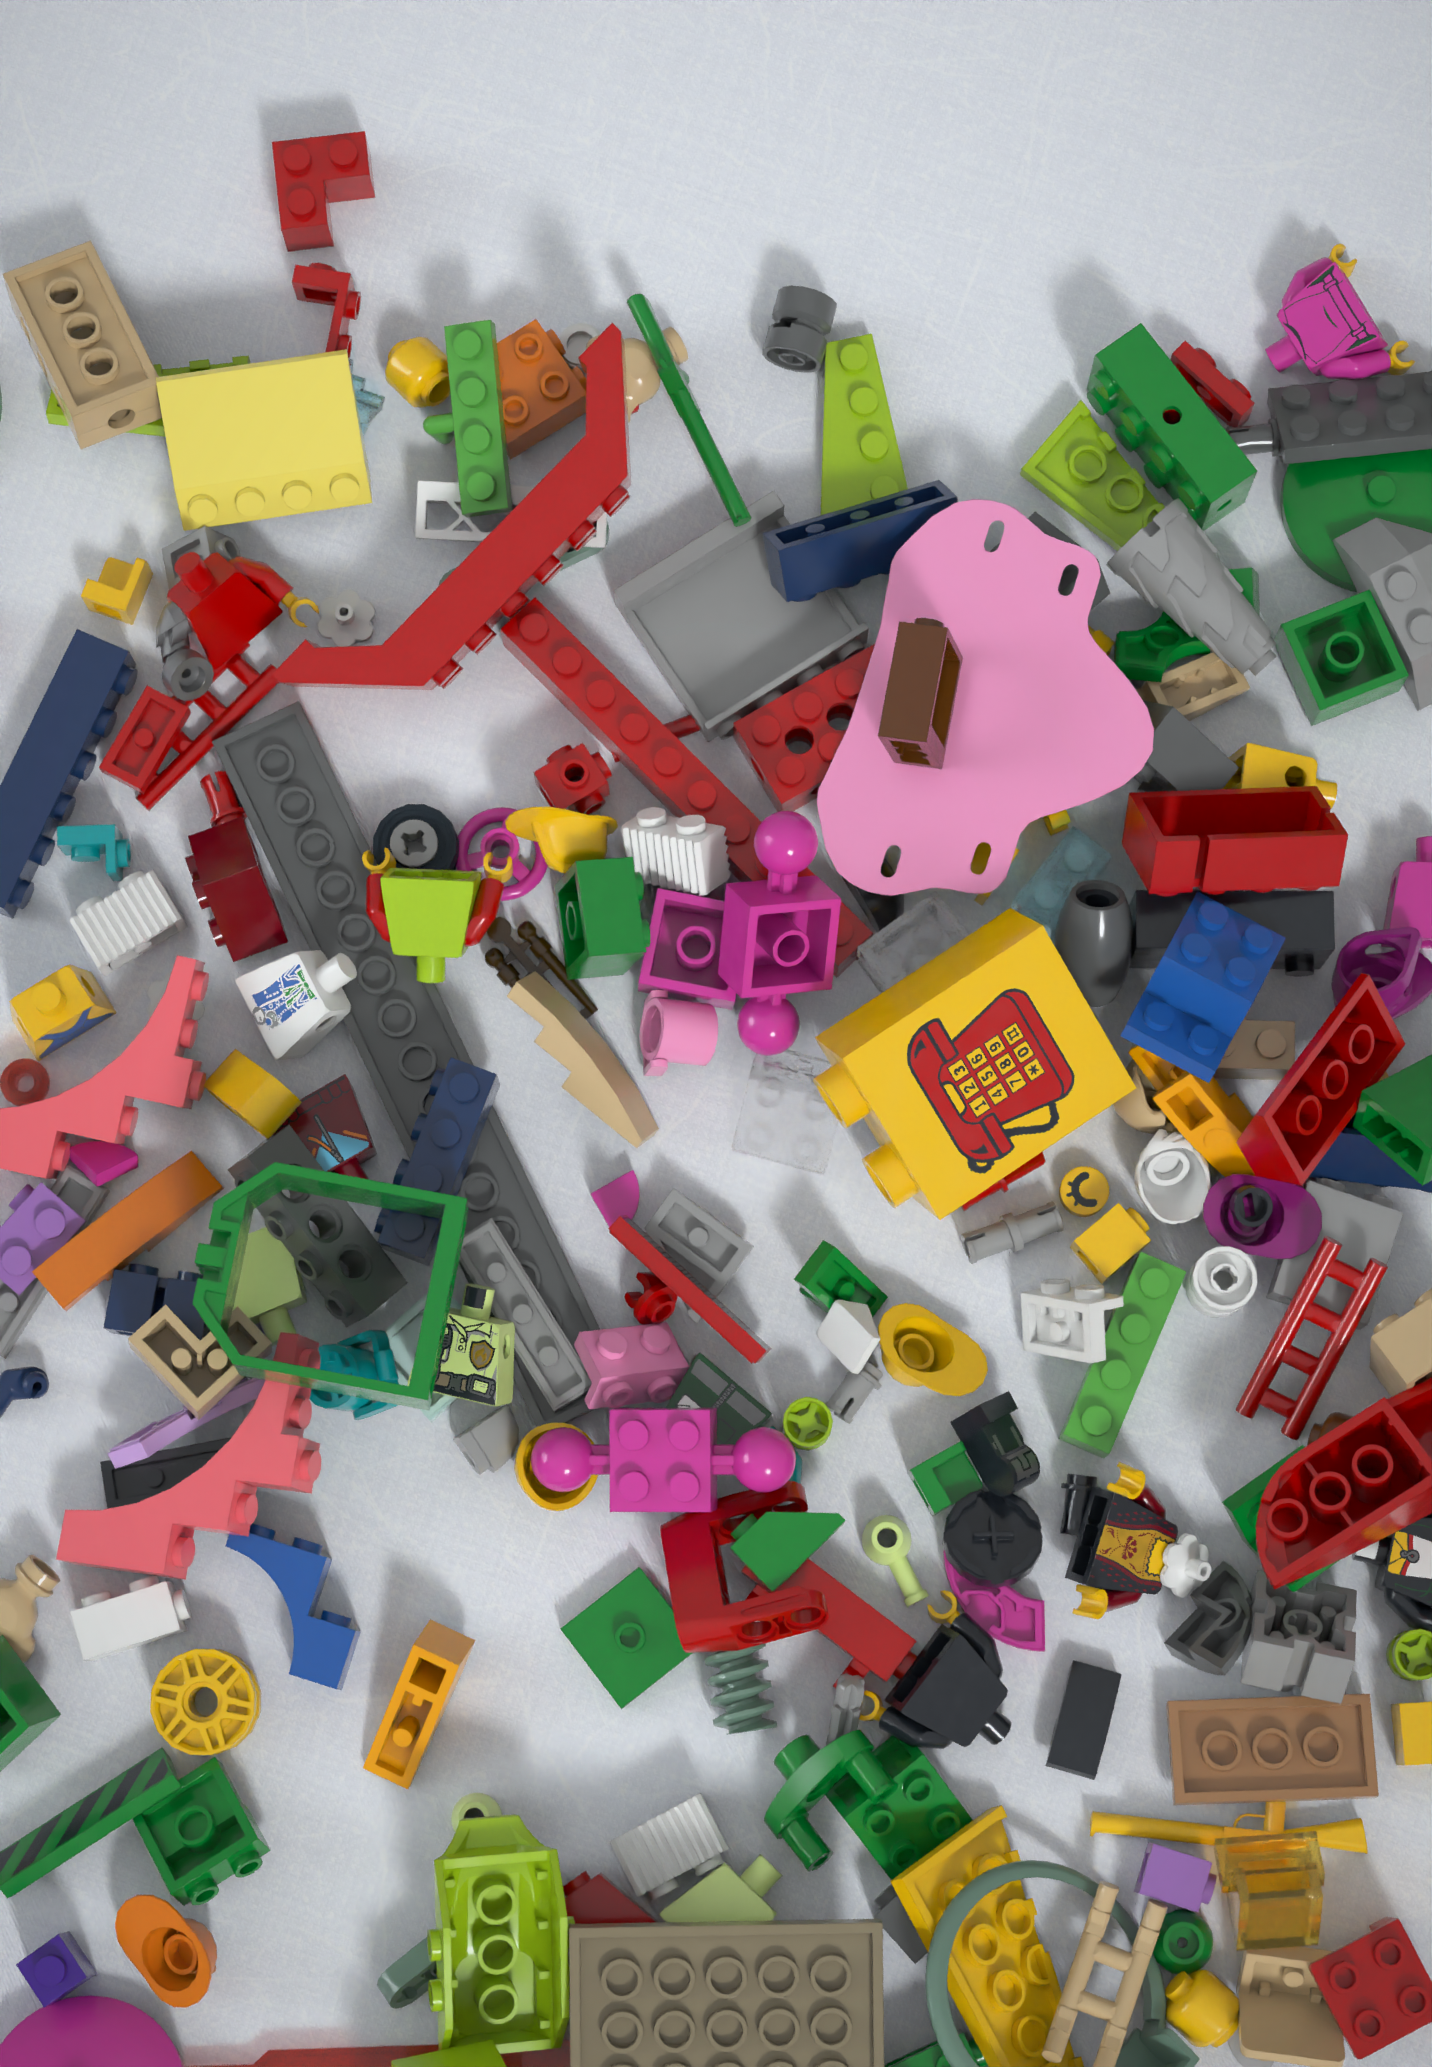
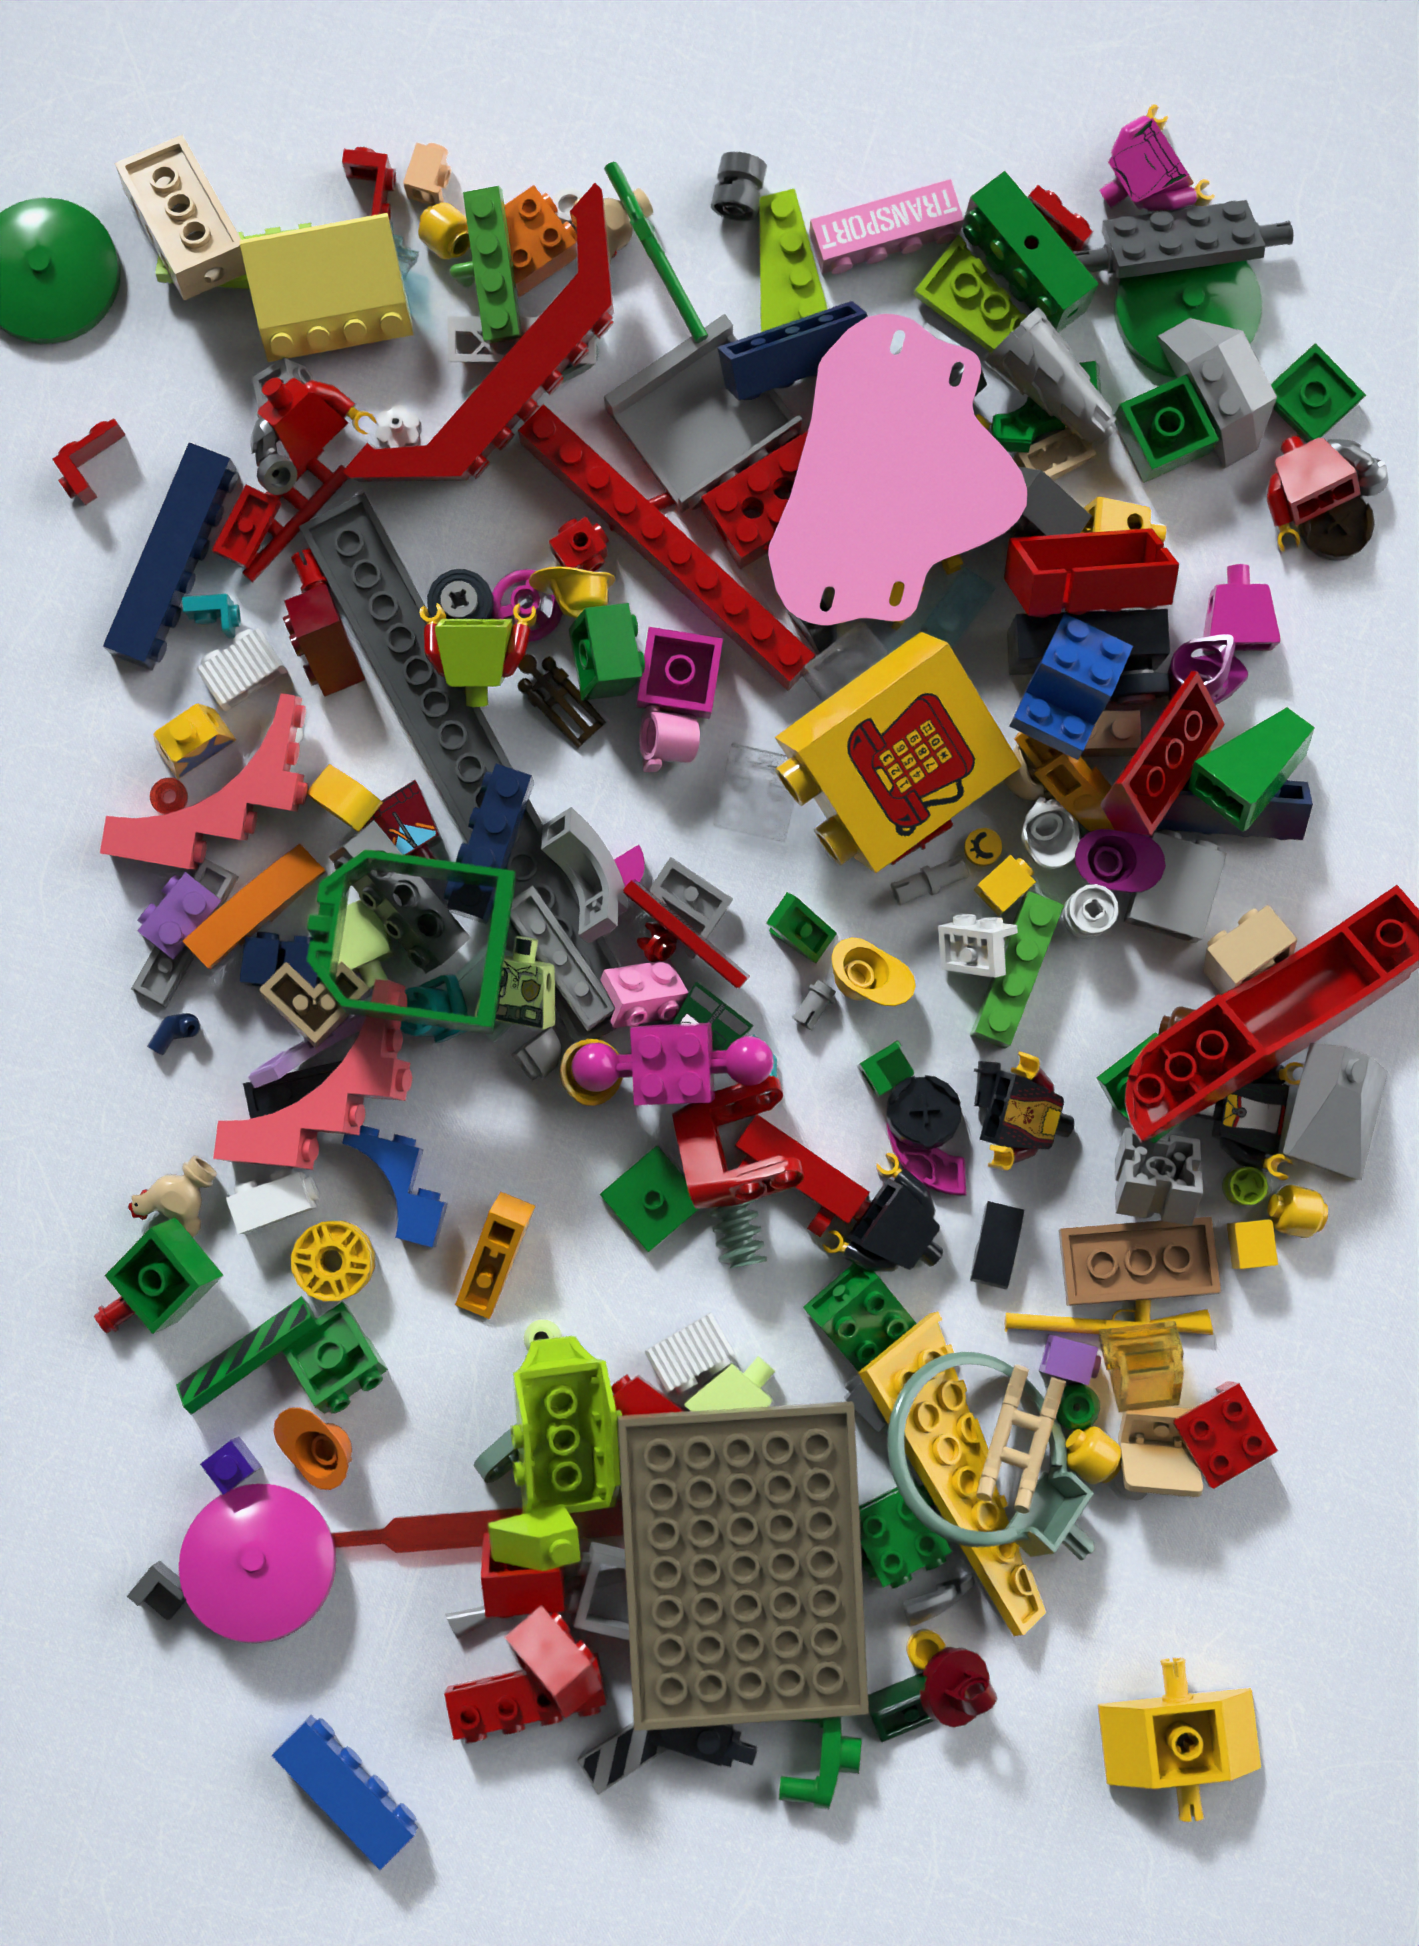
camera: 10 degrees left, 5 degrees up
(103, 1160) = (232, 853): dark pink tile -> none
(118, 589) = (220, 410): yellow panel -> none
(298, 1000) = (375, 724): white torso -> none
(313, 175) = (355, 77): red brick -> none
(401, 299) = (427, 174): none -> light nougat brick
(569, 1201) = (590, 868): none -> light grey arch
(596, 1073) = (607, 773): tan slope -> none
(677, 851) = (661, 597): white brick -> none
(778, 934) = (743, 658): dark pink brick -> none
(781, 1542) = (765, 1122): green slope -> none
(808, 1416) = (784, 1028): lime wheel -> none
(809, 1777) = (793, 1296): green connector -> none
(846, 1706) = (817, 1252): light grey axle -> none
(849, 1333) = (809, 962): white slope -> none
(894, 1556) = (849, 1129): yellowish green bar -> none
(920, 693) = (846, 467): reddish brown window -> none
(987, 387) = (886, 227): none -> bright pink brick
(997, 1446) = (925, 1043): black leg -> none
(1096, 939) = (987, 652): dark grey piece -> none
(1185, 1565) = (1070, 1126): white plant -> none
(1218, 1627) = (1096, 1172): dark grey brick -> none
(1259, 1205) = (1117, 850): black hinge -> none
(1295, 991) = (1140, 687): none -> black wheel
(1318, 1368) = (1153, 928): red bar -> none

